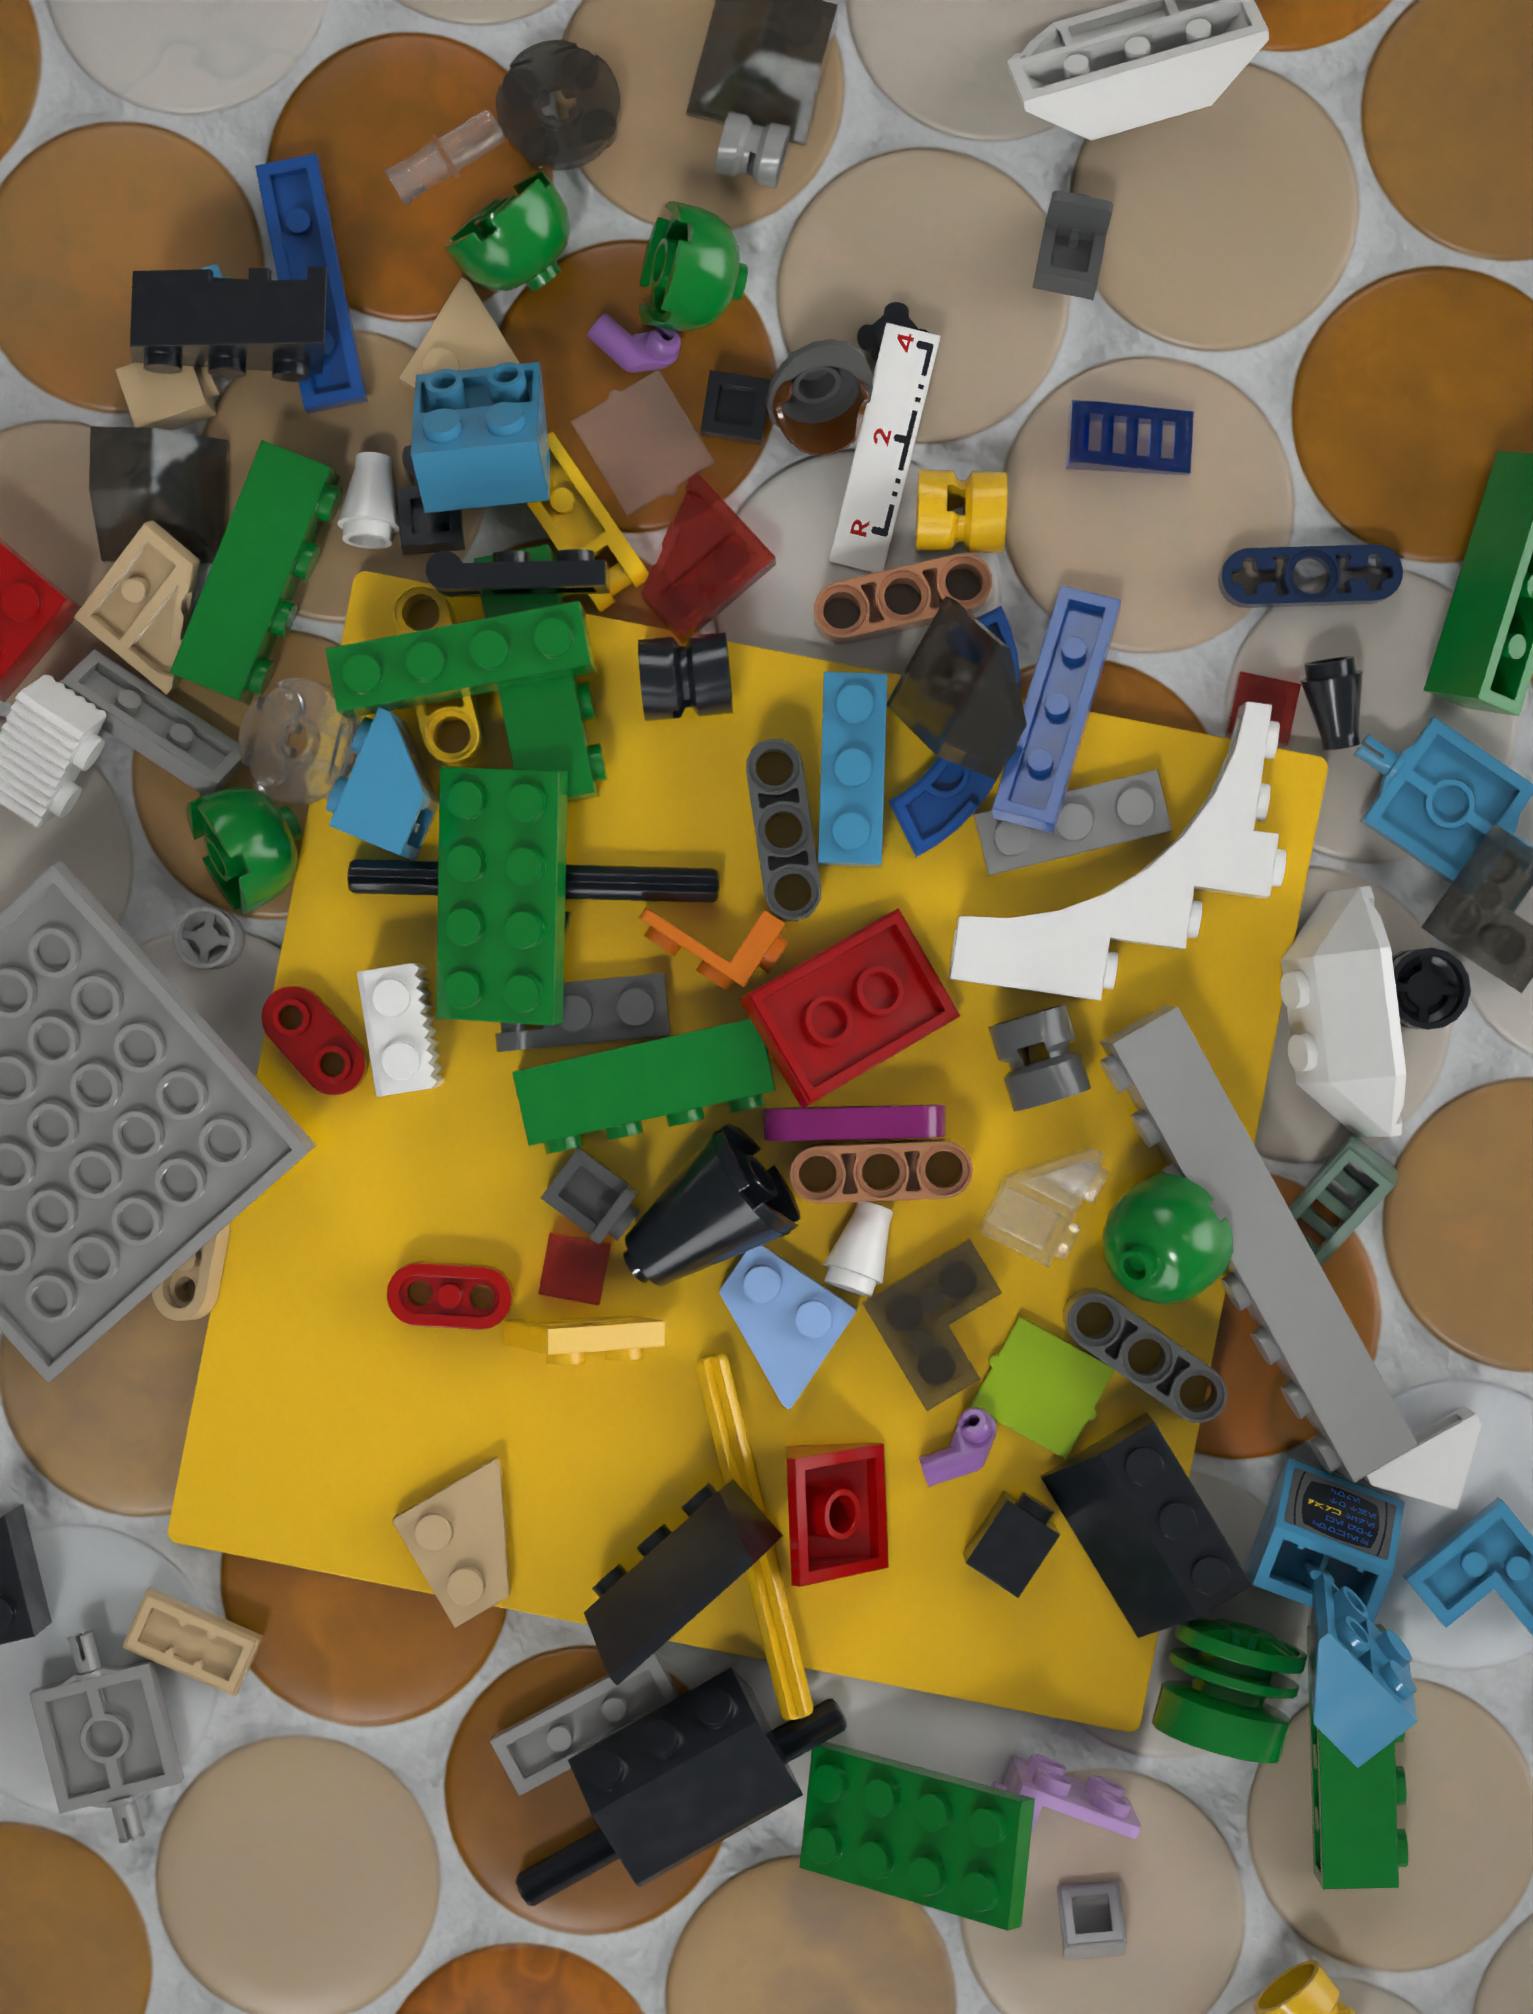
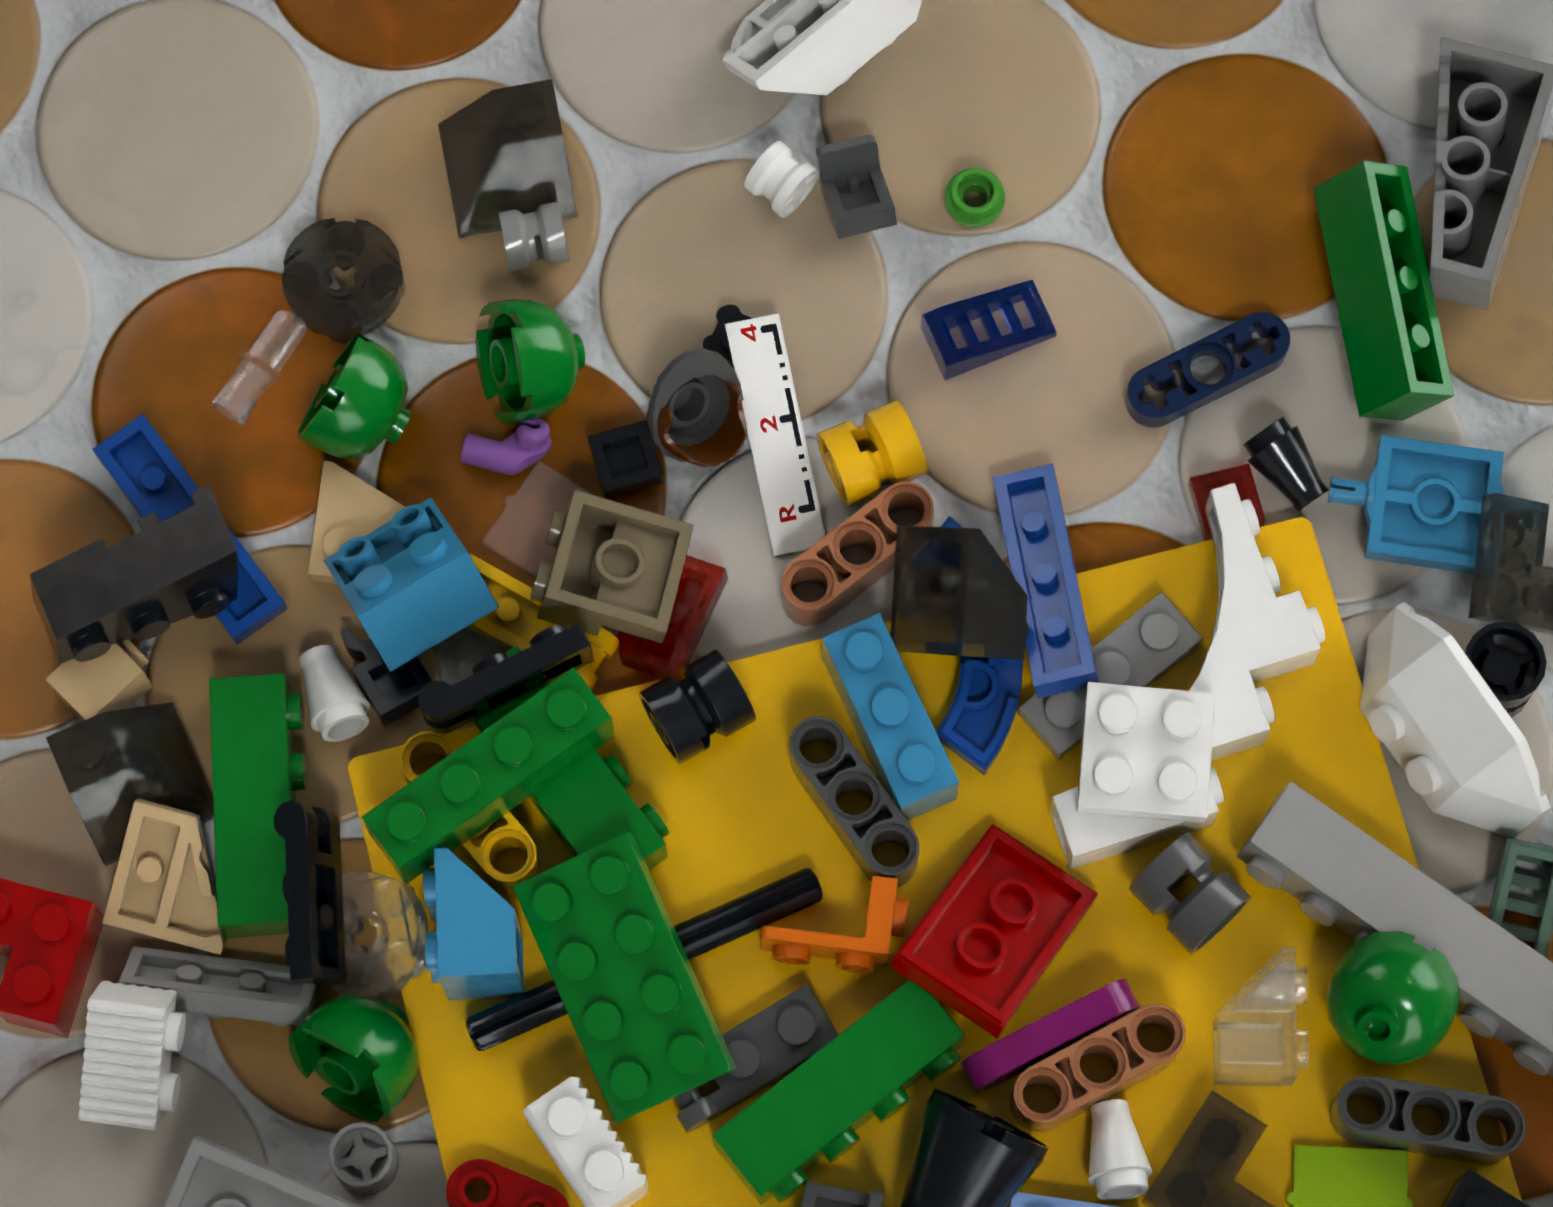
camera: 25 degrees left, 15 degrees down
(265, 684) = (313, 893): none -> black plate
(670, 510) = (611, 567): none -> dark tan plate
(1008, 203) = (781, 179): none -> white wheel
(1062, 917) = (1146, 752): none -> white plate
(1180, 287) = (974, 181): none -> bright green plate

